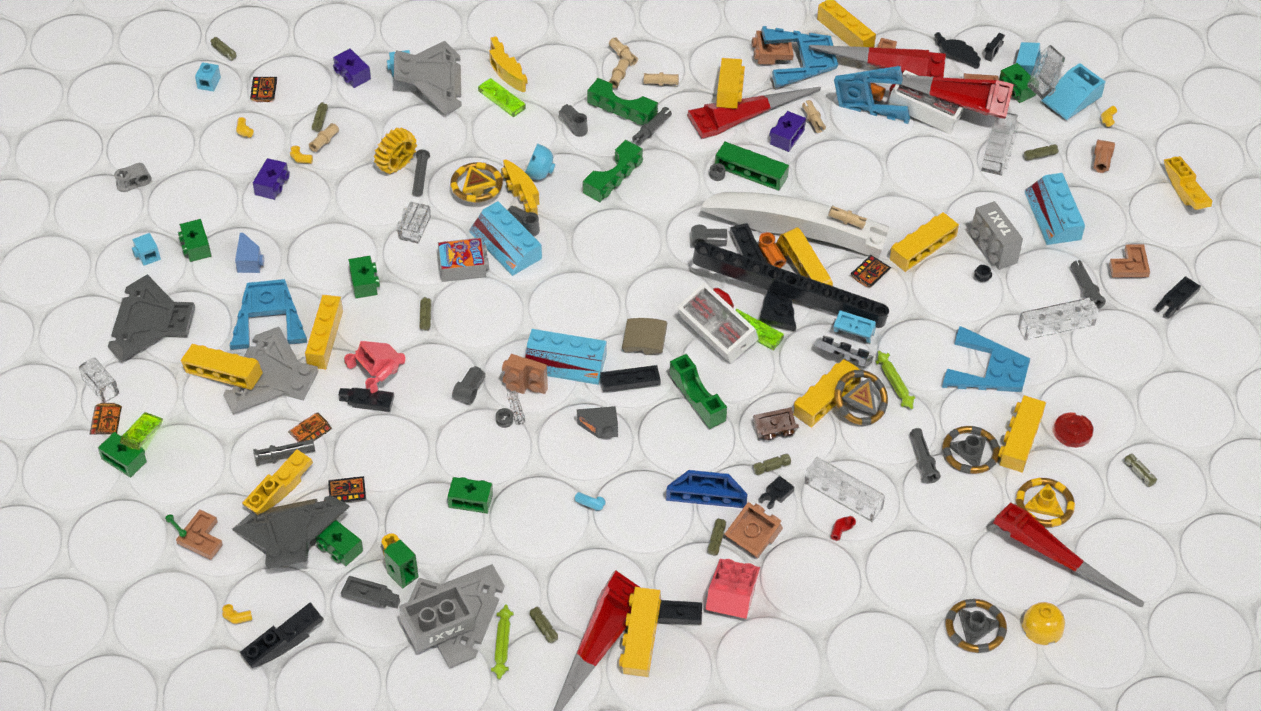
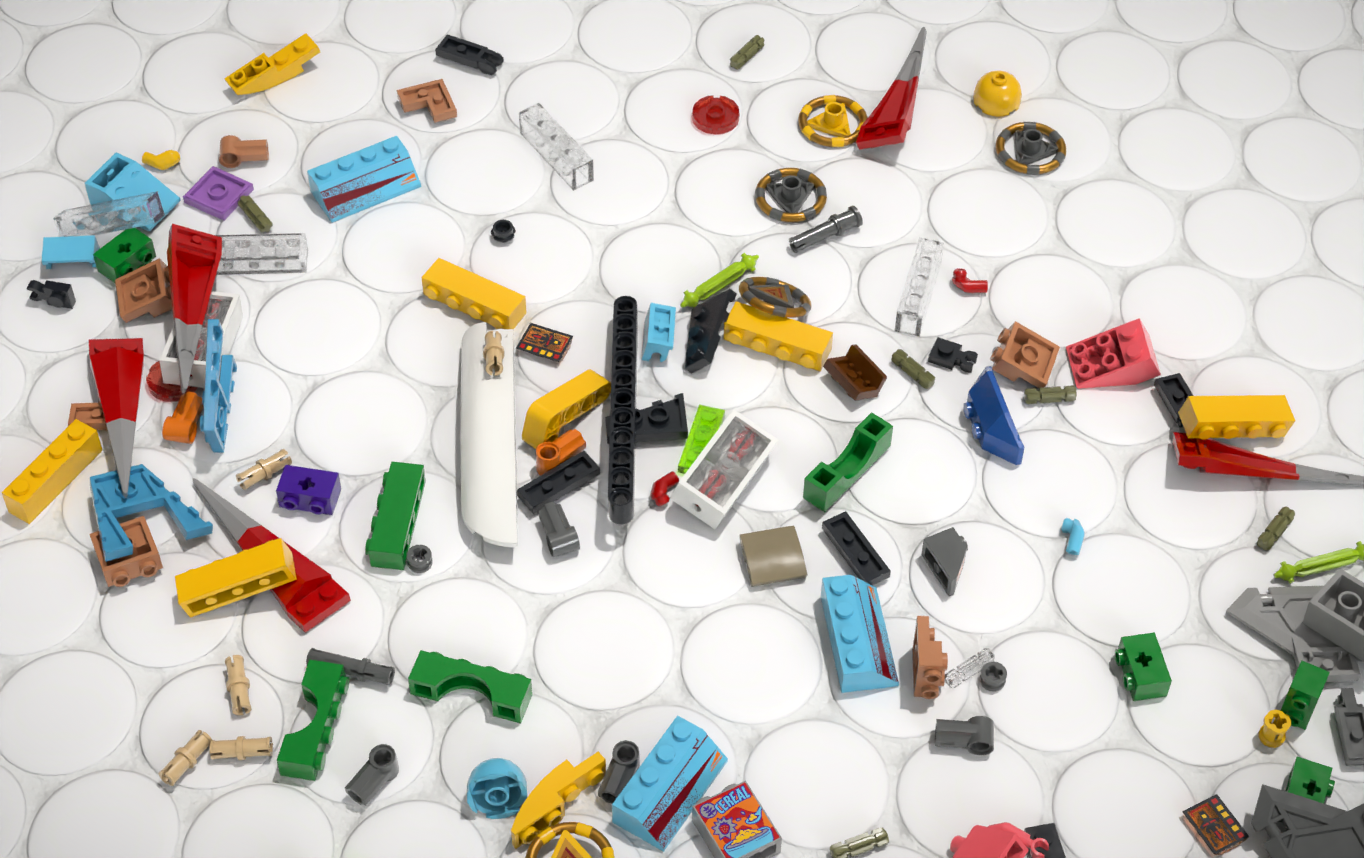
camera: 110 degrees left, 0 degrees up
(958, 50) = (65, 337): black animal -> none
(996, 235) = (443, 217): light grey brick -> none
(1005, 370) = (653, 186): dark azure wing -> none
(1022, 435) = (749, 149): yellow brick -> none
(1069, 139) = (217, 193): none -> medium lavender tile
(1089, 288) = (492, 128): dark grey pin -> none

